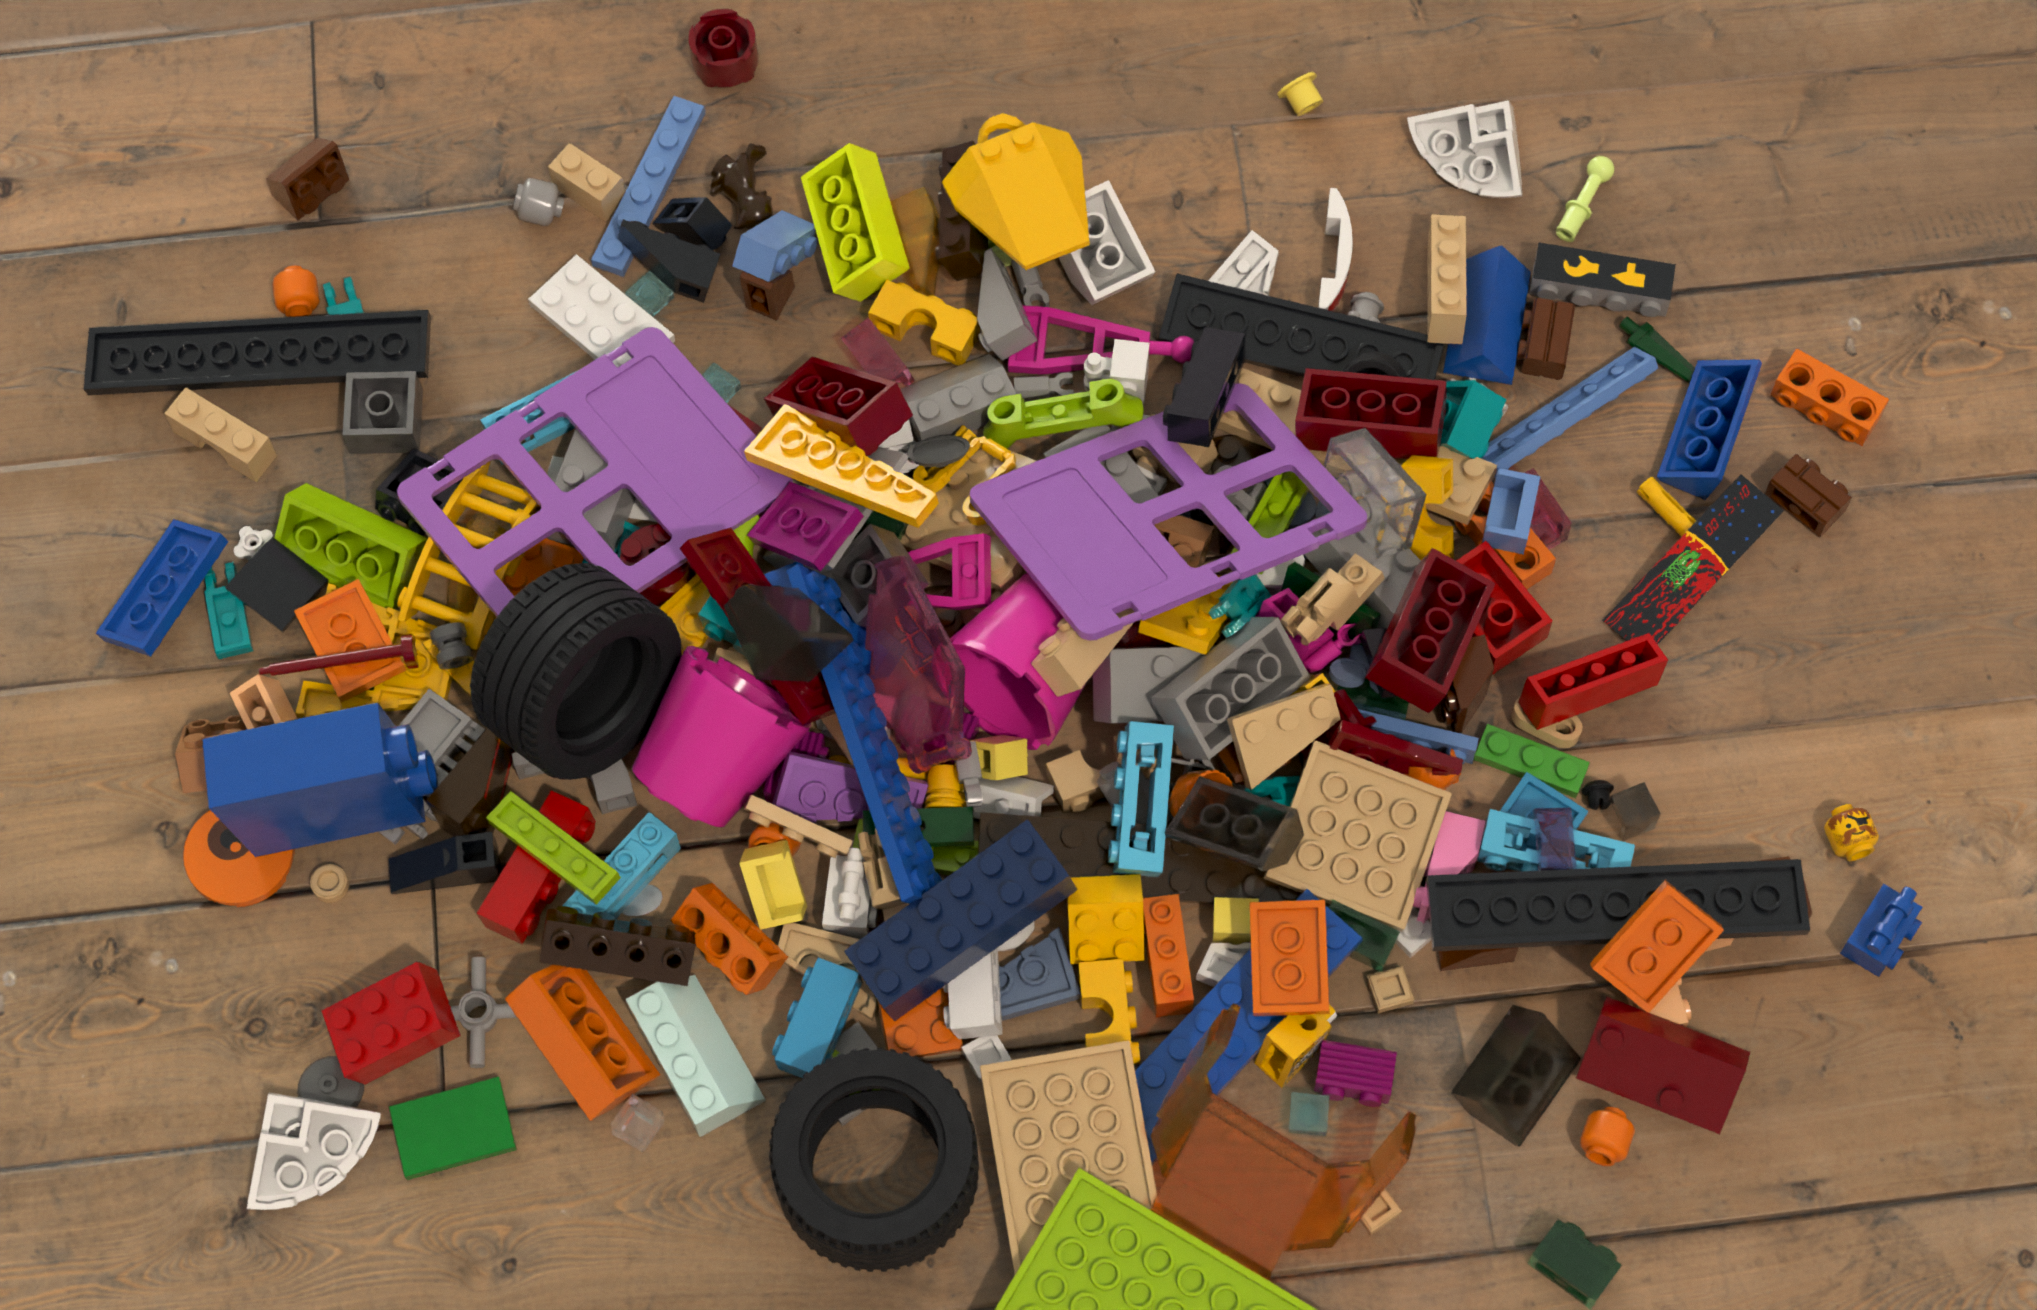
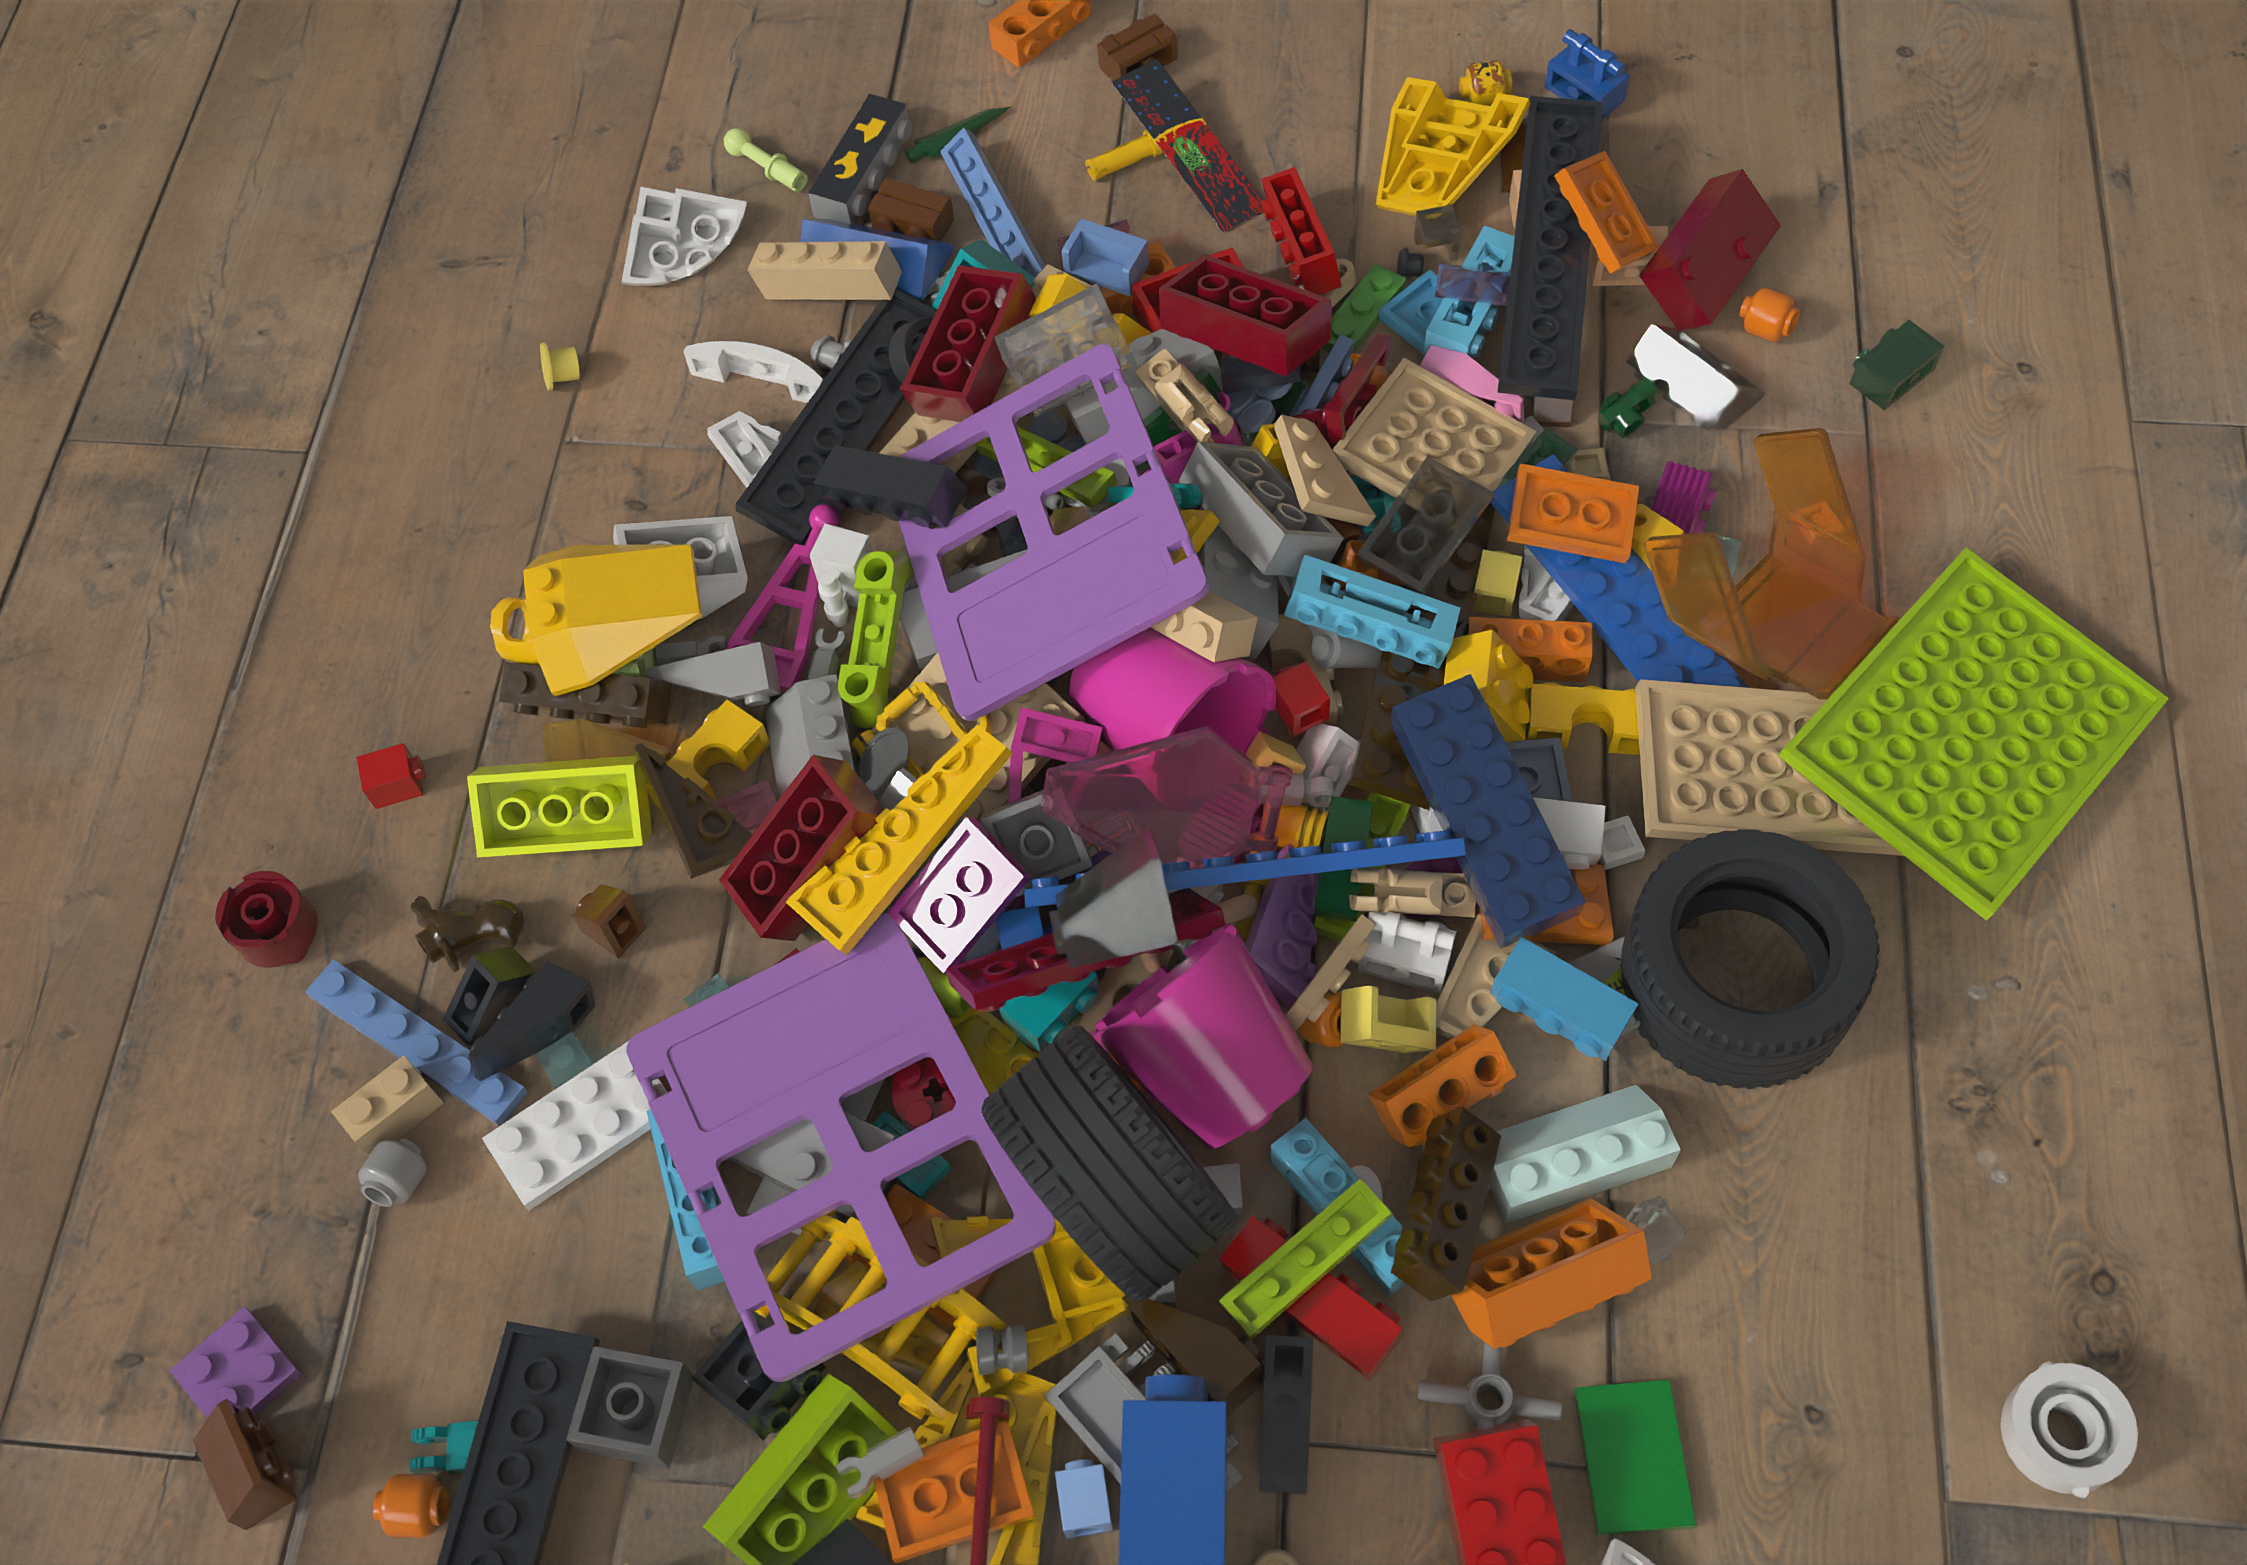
camera: 75 degrees left, 5 degrees down
(359, 585) = (882, 1460): none -> light grey bar
(380, 150) = (237, 1365): none -> medium lavender plate
(775, 246) = (566, 890): medium blue brick -> none
(850, 327) = (701, 829): none -> dark brown wing
(869, 93) = (390, 775): none -> red brick
(1059, 761) = (1300, 698): none -> red brick
(1458, 1011) = (1624, 411): none -> dark green plate
(1708, 425) = (1046, 102): blue slope -> none
(1746, 795) = (1441, 145): none -> yellow wedge

